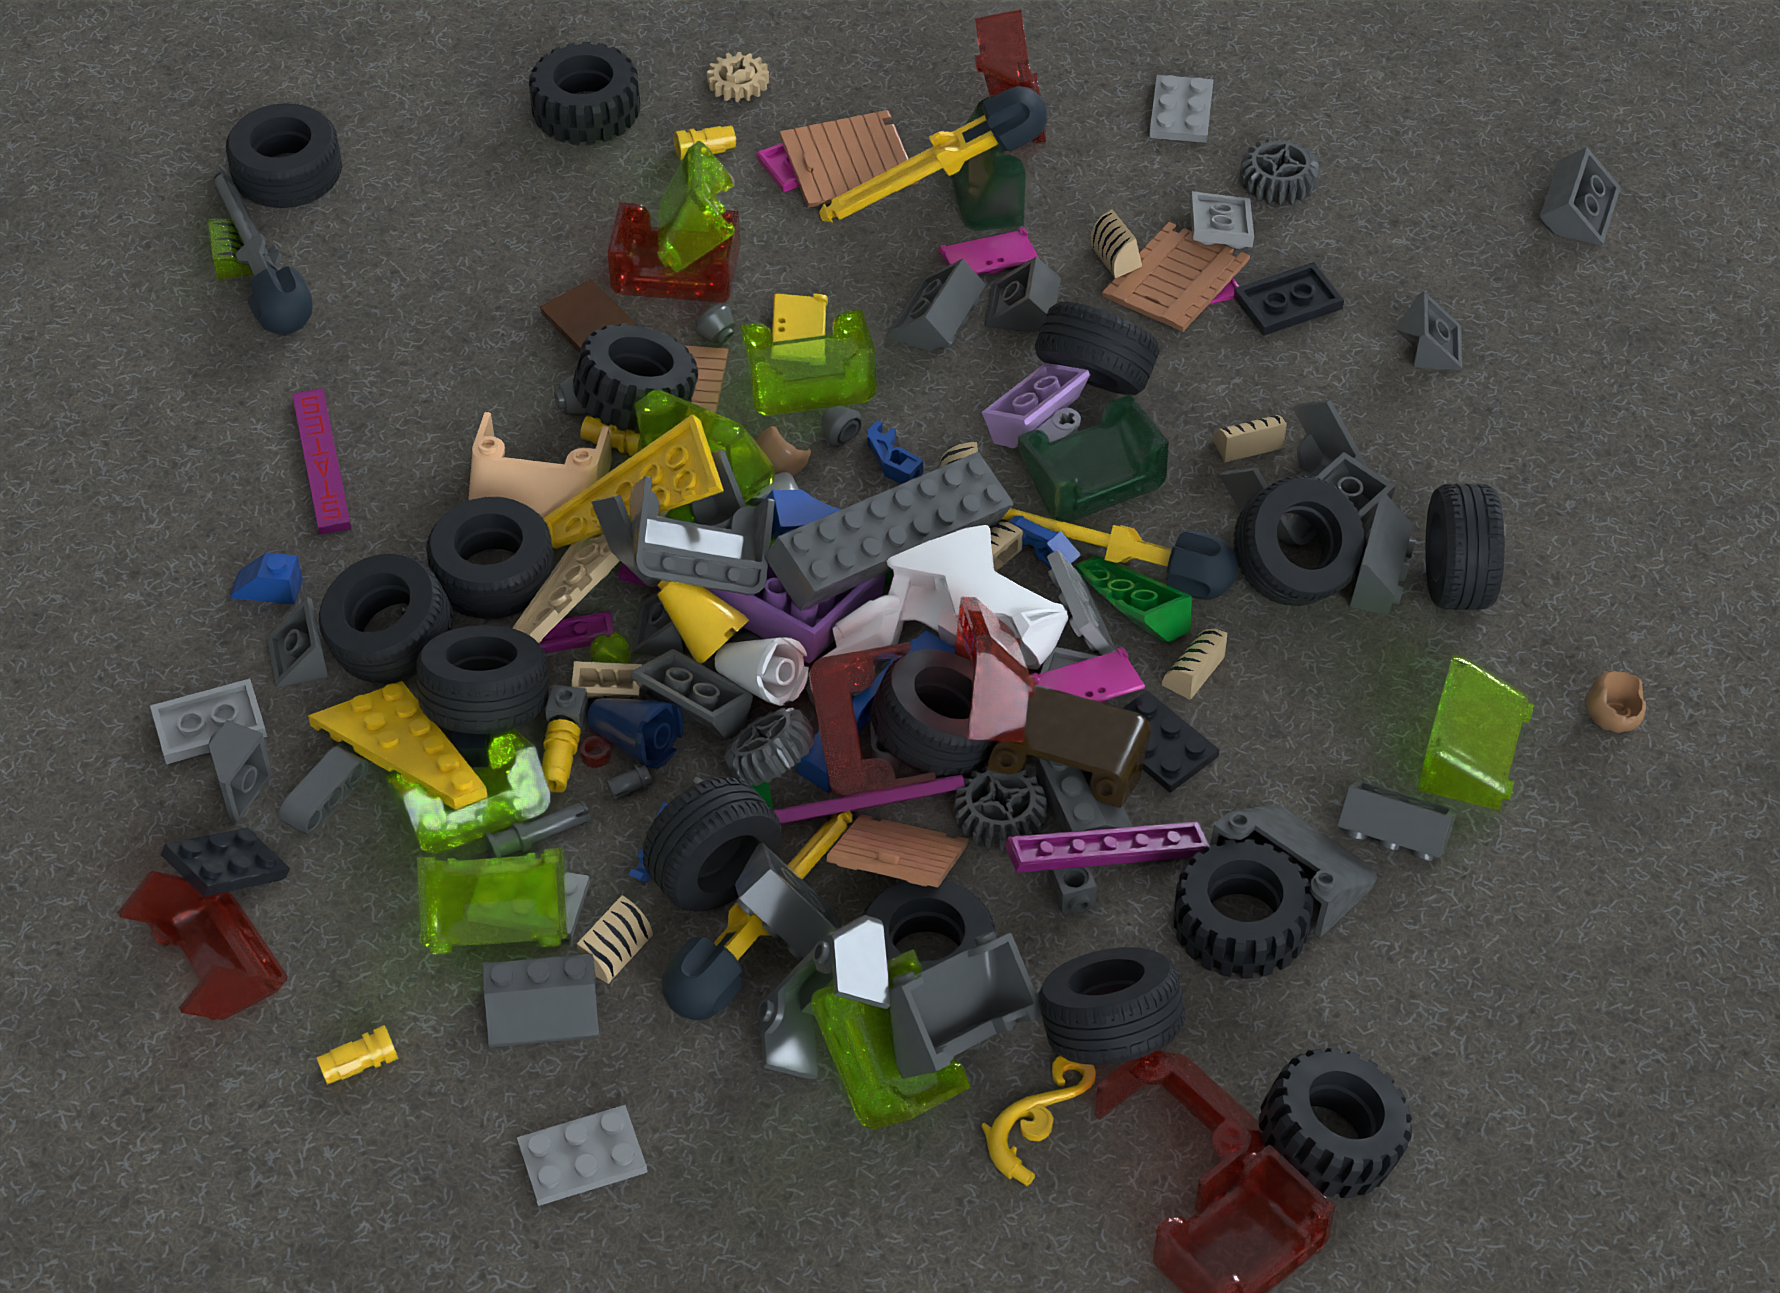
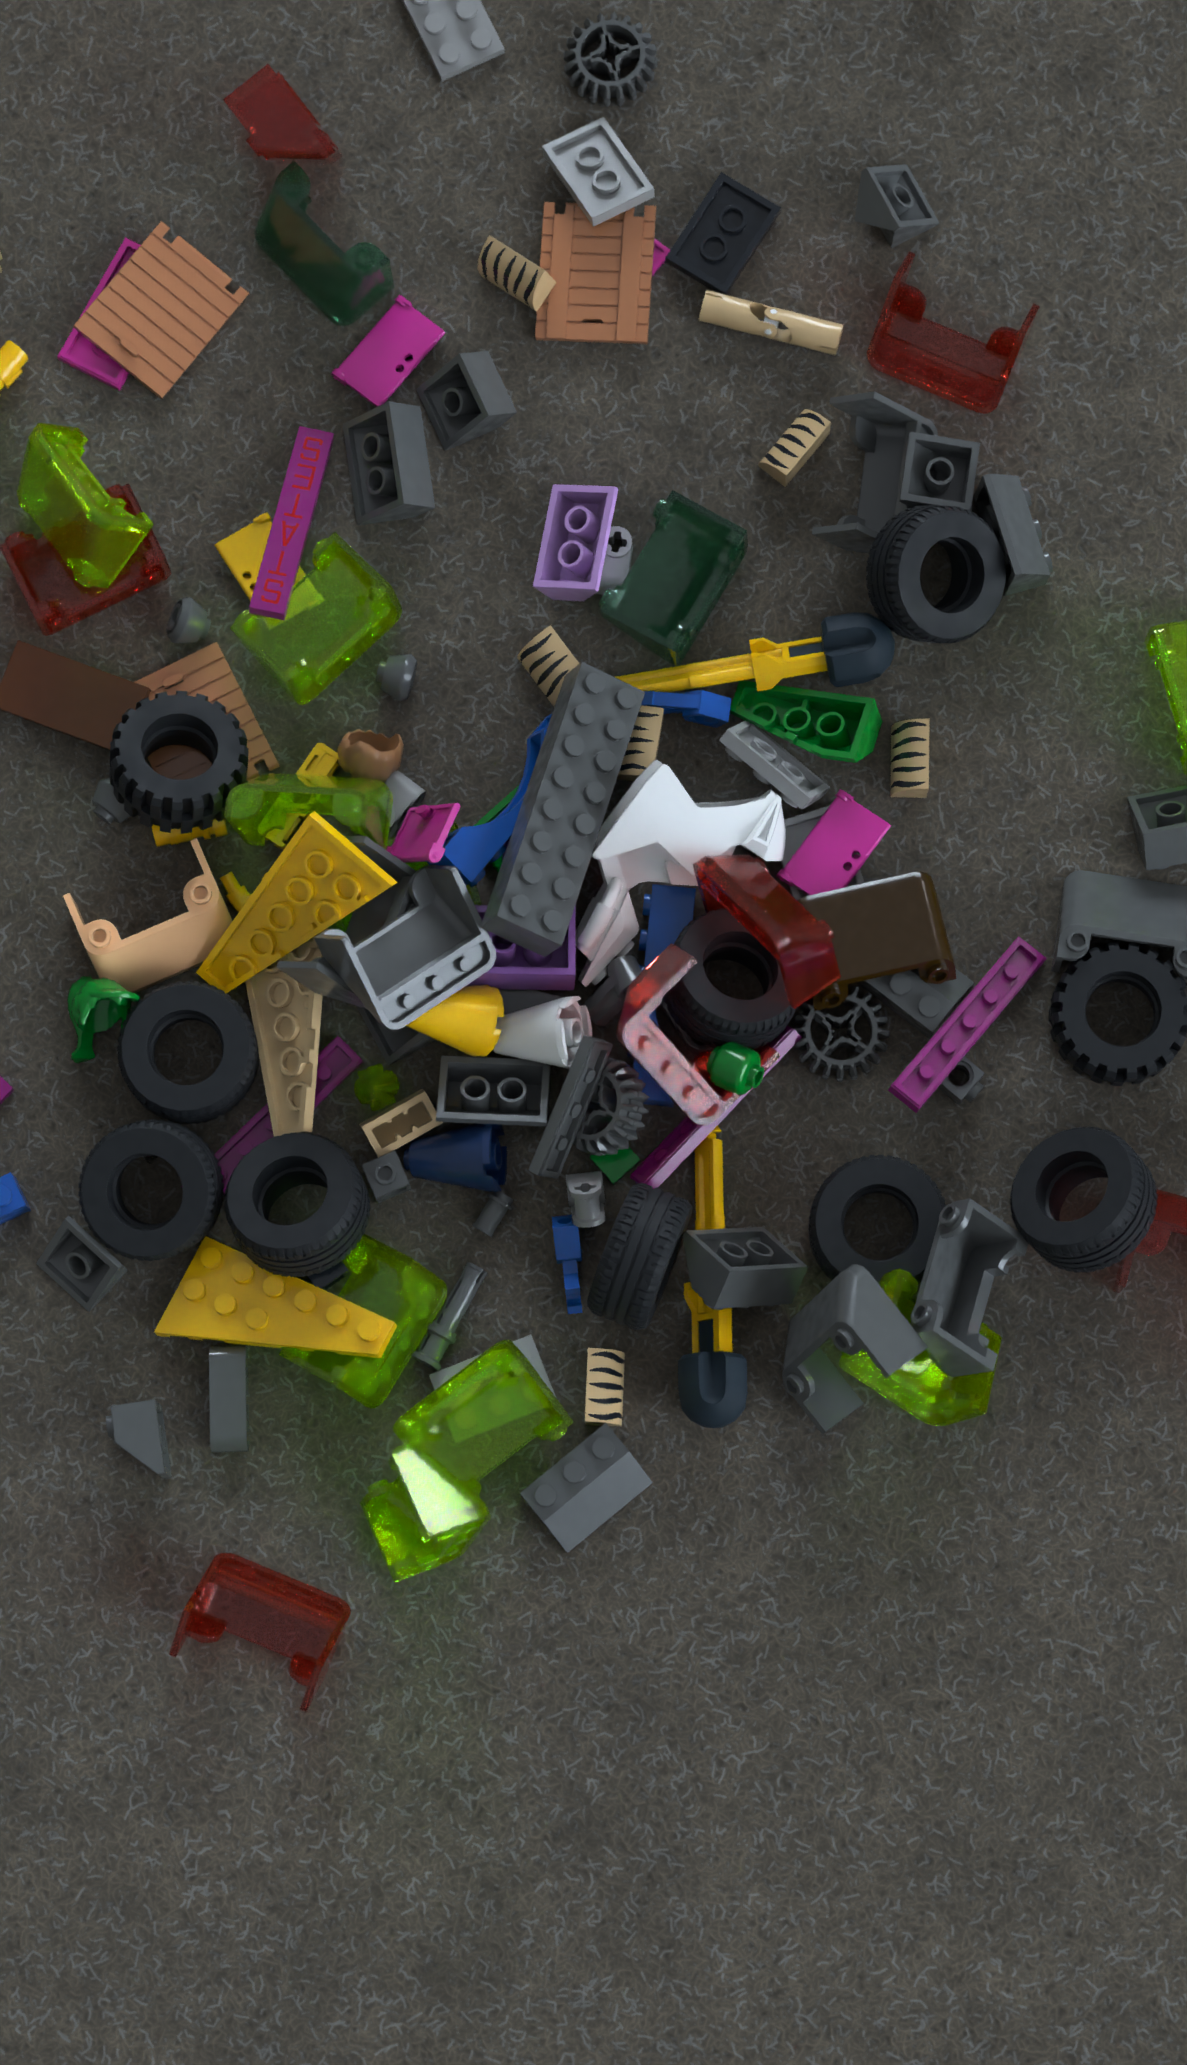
camera: 30 degrees left, 30 degrees up
(190, 721) = (62, 1392): light grey plate -> none
(225, 861) = (210, 1535): black plate -> none
(357, 1055) = (468, 1640): yellow axle -> none
(394, 924) = (423, 1514): none -> clear neon green windscreen
(444, 494) = (94, 1008): none -> green piece
(560, 746) = (412, 1230): yellow axle -> none
(581, 1155) = (722, 1604): light grey plate -> none
(595, 760) = (441, 1209): clear red axle -> none
(741, 722) = (570, 1107): none -> dark grey tile
(785, 481) = (424, 833): none -> dark pink door
(836, 300) = (291, 523): none -> magenta tile
(888, 457) = (464, 684): blue piece -> none
(891, 760) = (735, 1068): none -> green head
(897, 851) = (795, 1149): nougat door -> none
(1008, 120) = (334, 207): piece -> none
(1041, 1126) = (1057, 1318): yellow plant -> none
(1106, 345) = (603, 450): black tyre -> none
(1174, 746) = (949, 859): black plate -> none
(1274, 351) = (745, 315): none -> tan piece
(1384, 423) = (940, 357): none -> clear red windscreen
(1464, 546) = (1092, 490): black tyre -> none

